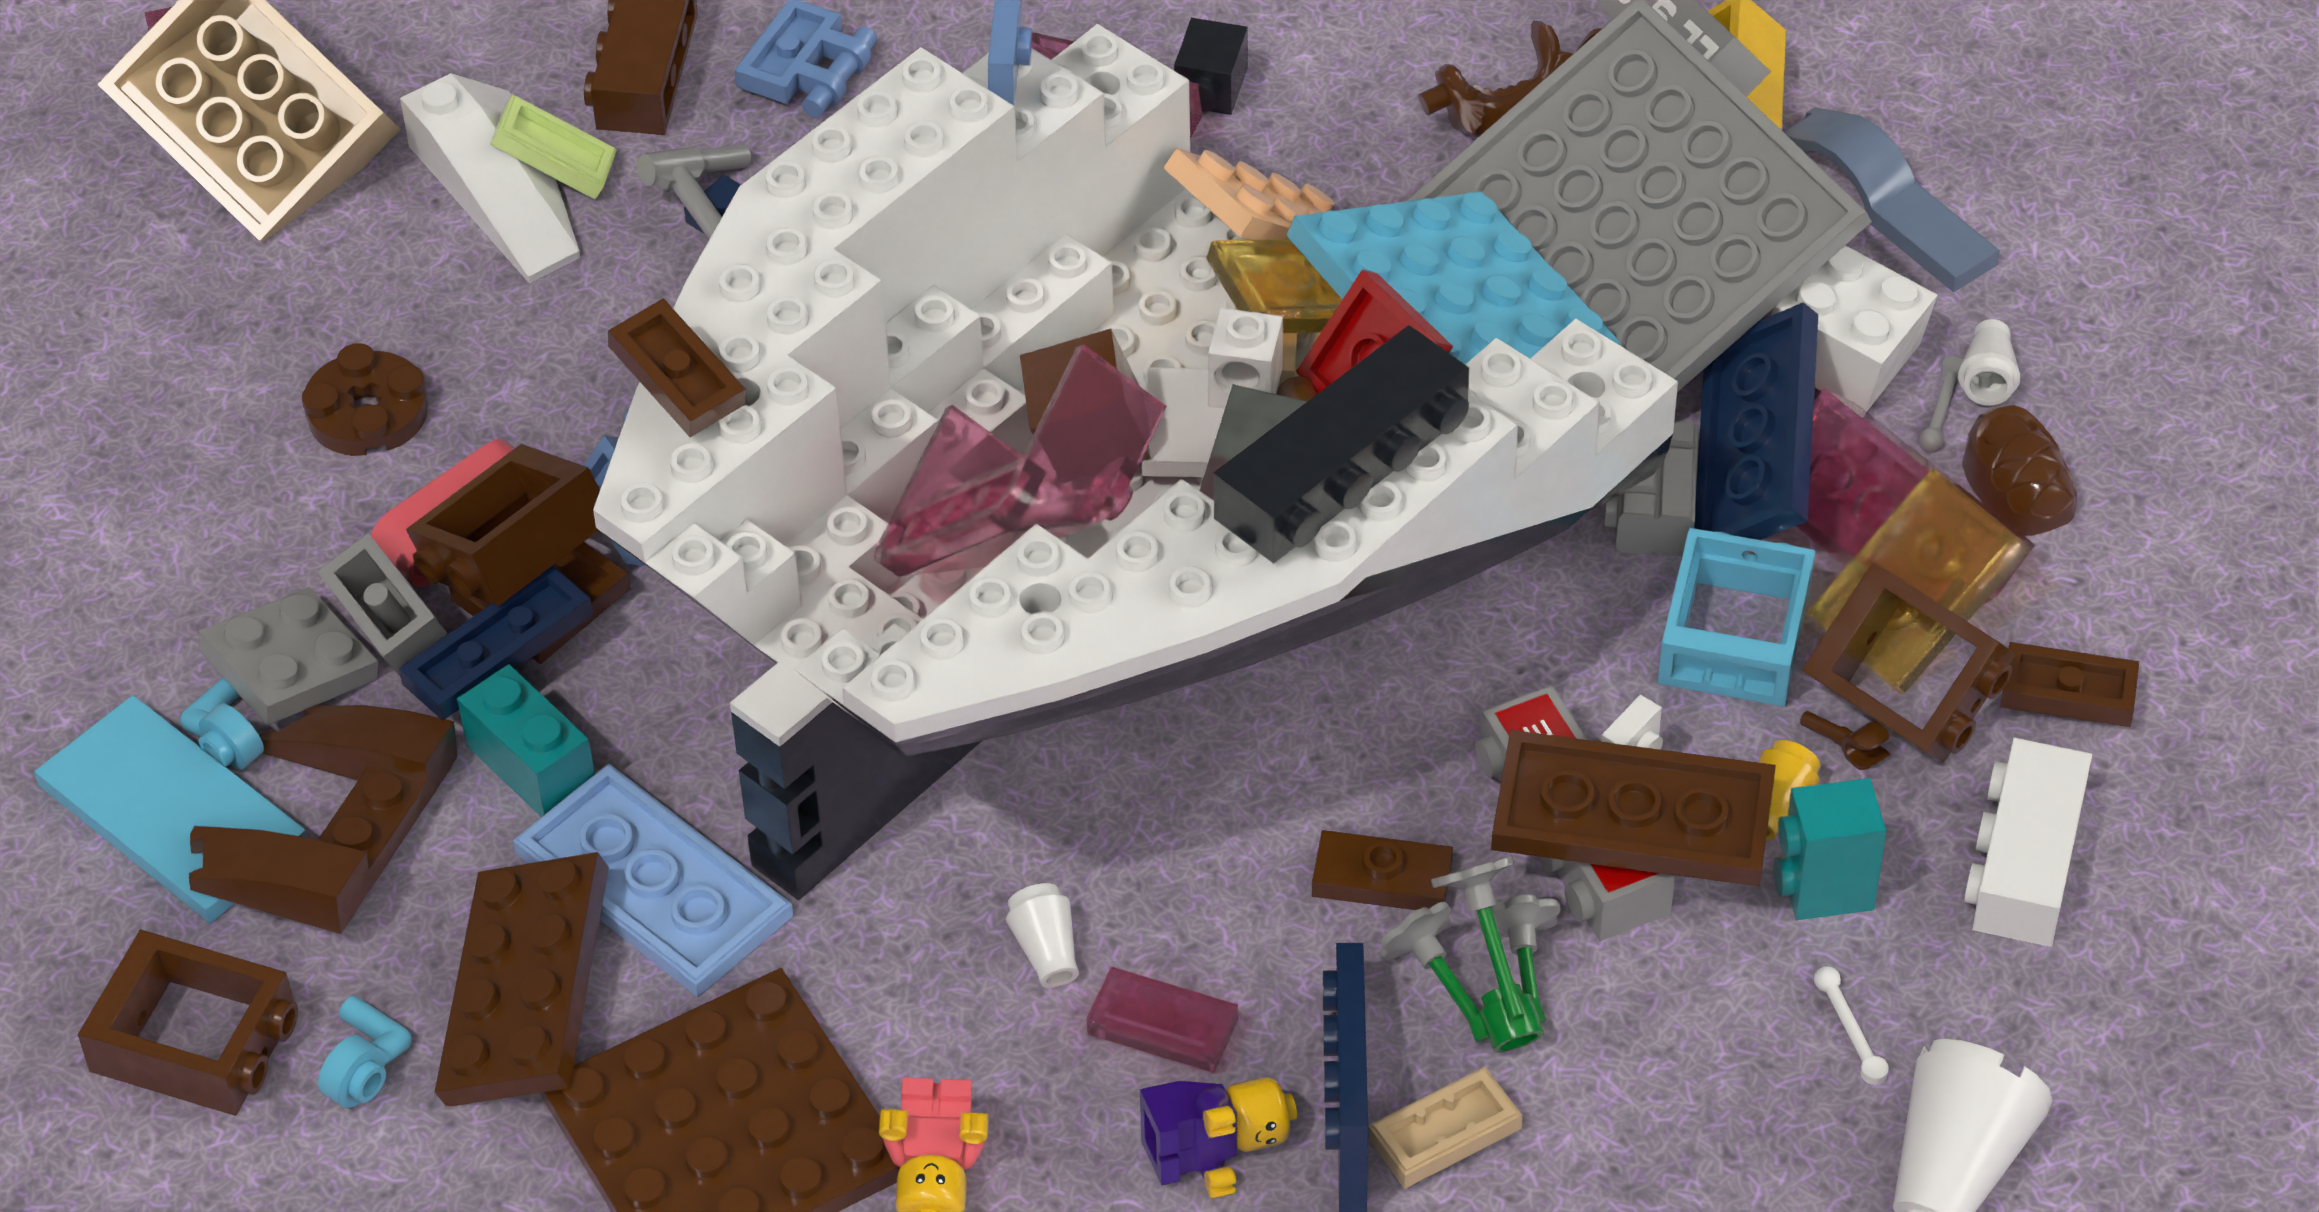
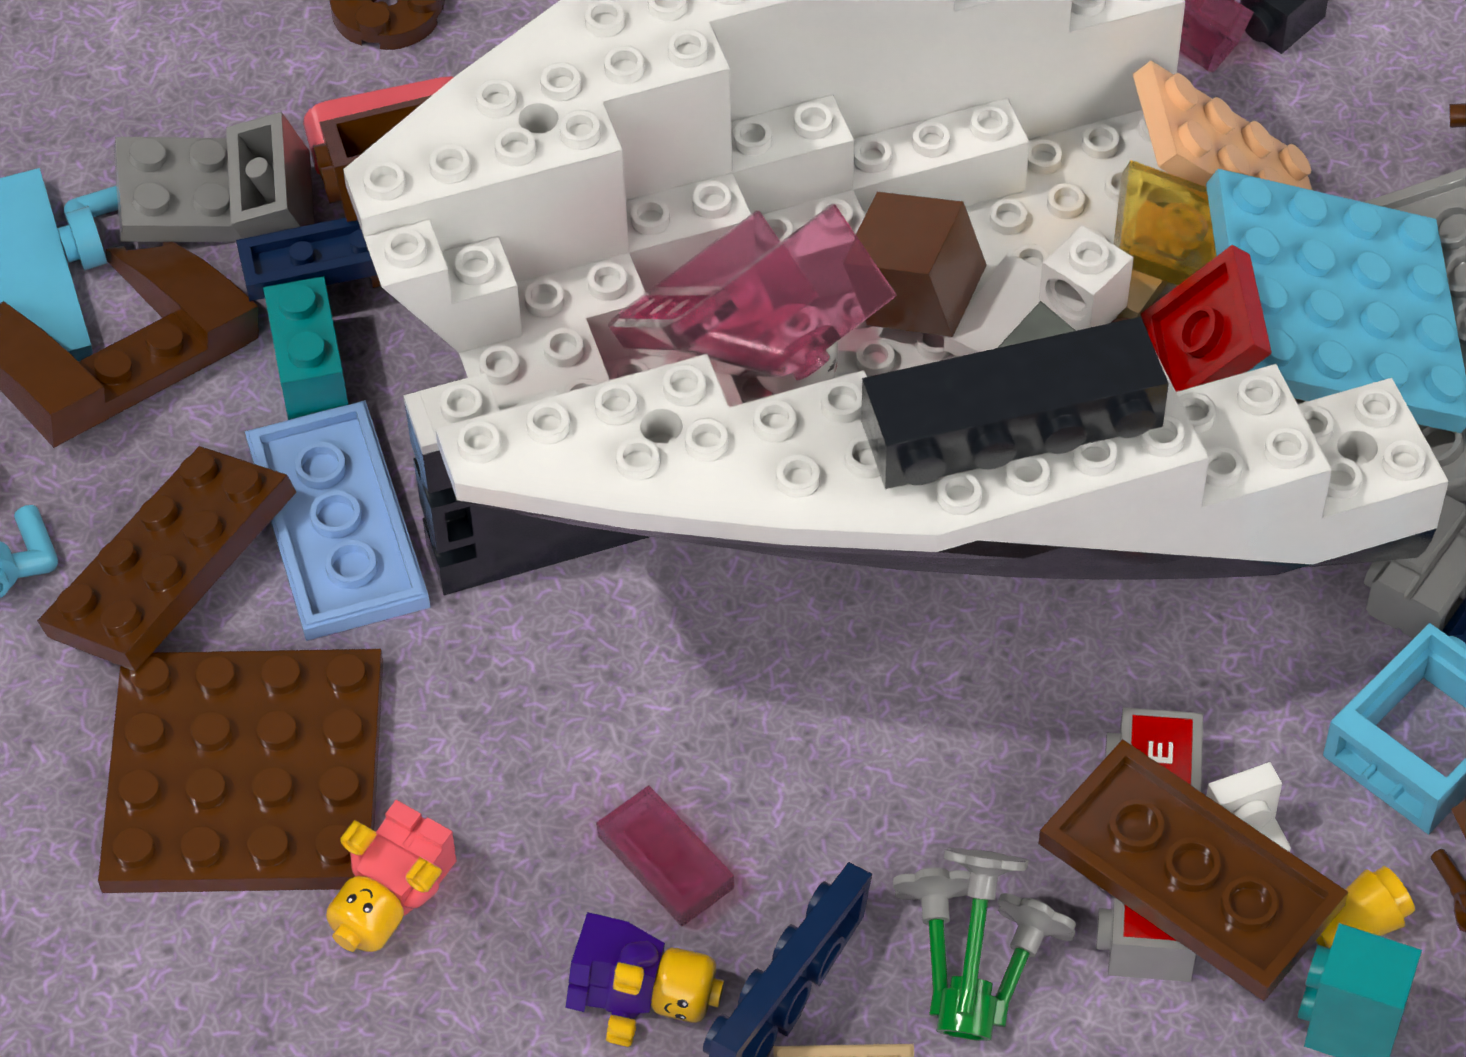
camera: 30 degrees right, 5 degrees up
(676, 367) = (484, 71): reddish brown plate -> none
(1044, 930) = (618, 724): white cone -> none
(1380, 870) = (948, 808): reddish brown plate -> none

